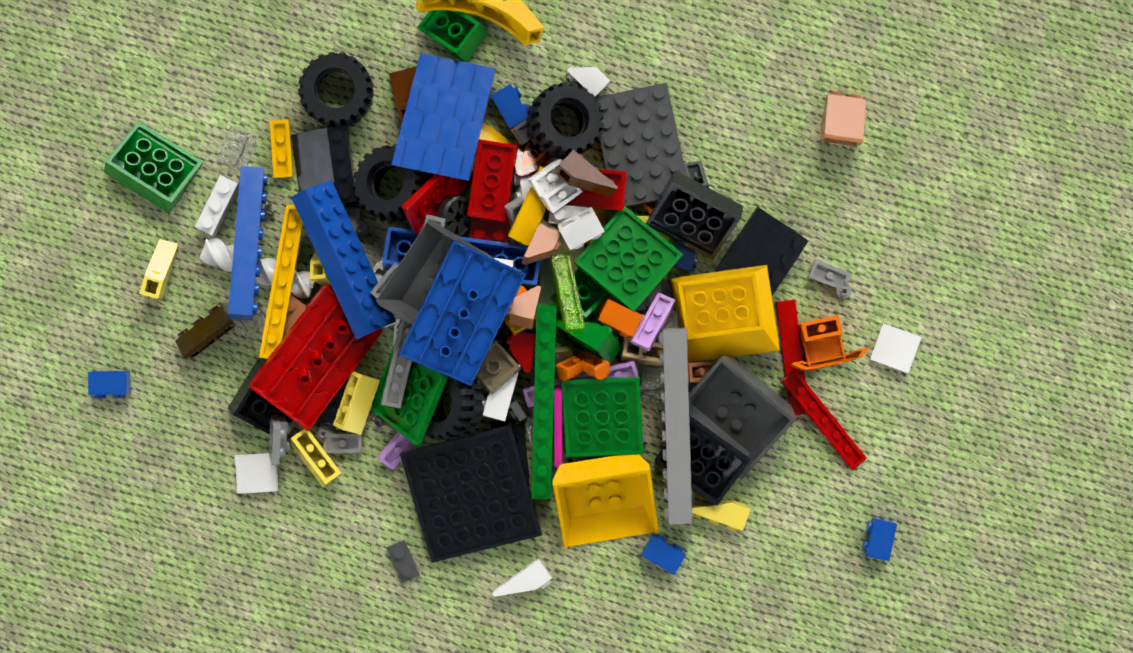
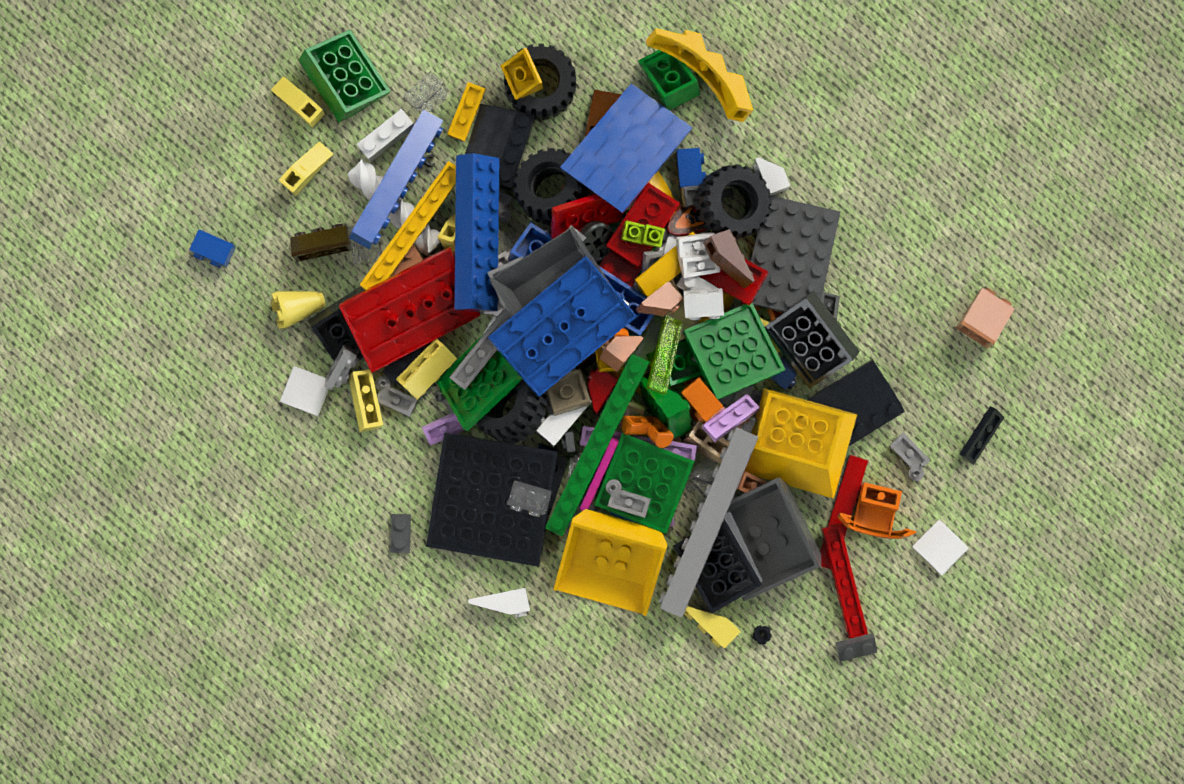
camera: 20 degrees right, 5 degrees down
(122, 211) = (298, 101): none -> light yellow slope
(210, 400) = (295, 306): none -> light yellow cone
(315, 94) = (521, 75): none -> yellow slope
(496, 190) = (642, 234): none -> lime slope
(504, 479) = (529, 498): none -> clear bracket
(593, 441) = (626, 500): none -> light grey hinge
(663, 554) = (641, 636): blue brick -> none
(775, 501) = (765, 630): none -> black plate
(860, 473) = (856, 647): none -> dark grey plate
(880, 539) = (846, 716): blue brick -> none
(887, 229) = (981, 435): none -> black plate

